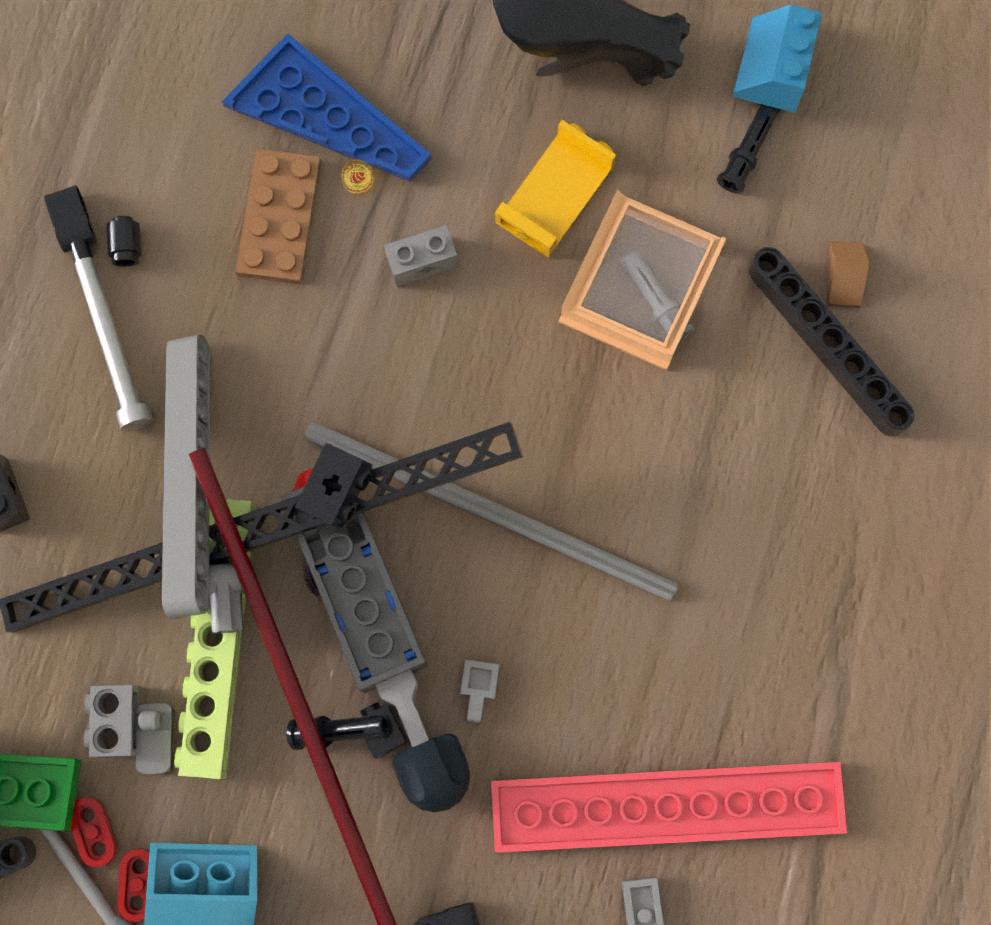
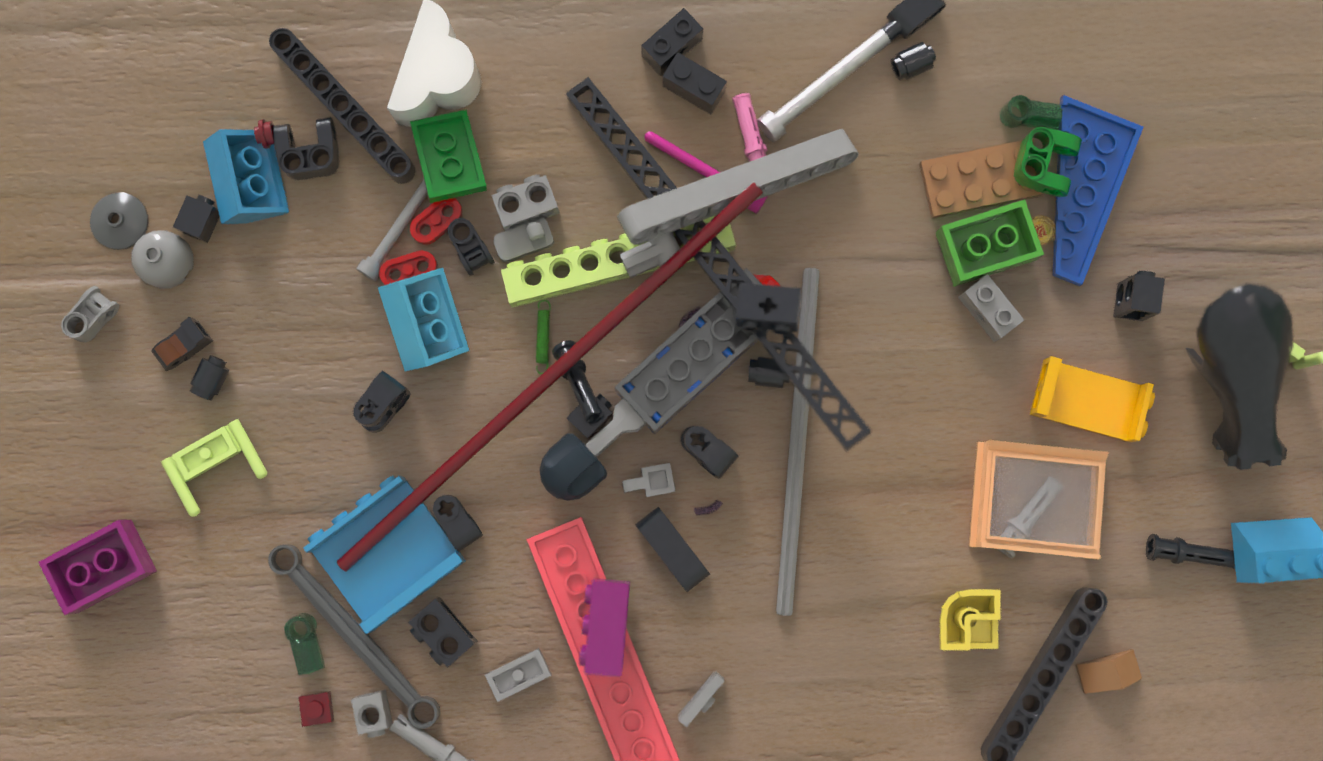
camera: 70 degrees right, 5 degrees up
(52, 483) = (694, 83): none -> black brick
(126, 441) = (749, 127): none -> bright pink pin
(138, 519) = (692, 162): none -> dark pink piece
(143, 802) = (471, 250): none -> black piece
(229, 139) = (1033, 113): none -> clear green piece
(268, 128) = (1039, 159): none -> green piece
(272, 754) = (543, 336): none -> bright green piece
(350, 232) = (989, 243): none -> bright green brick
(404, 516) = (766, 373): none -> black brick
(465, 100) = (1139, 296): none -> black brick
(473, 607) = (712, 455): none -> black piece
(531, 633) = (716, 505): none -> leg
(562, 690) = (672, 549): none -> black beam
(624, 794) = (605, 627): none -> magenta brick
(738, 715) = (702, 699): none -> light grey plate
(746, 395) = (970, 620): none -> light yellow brick

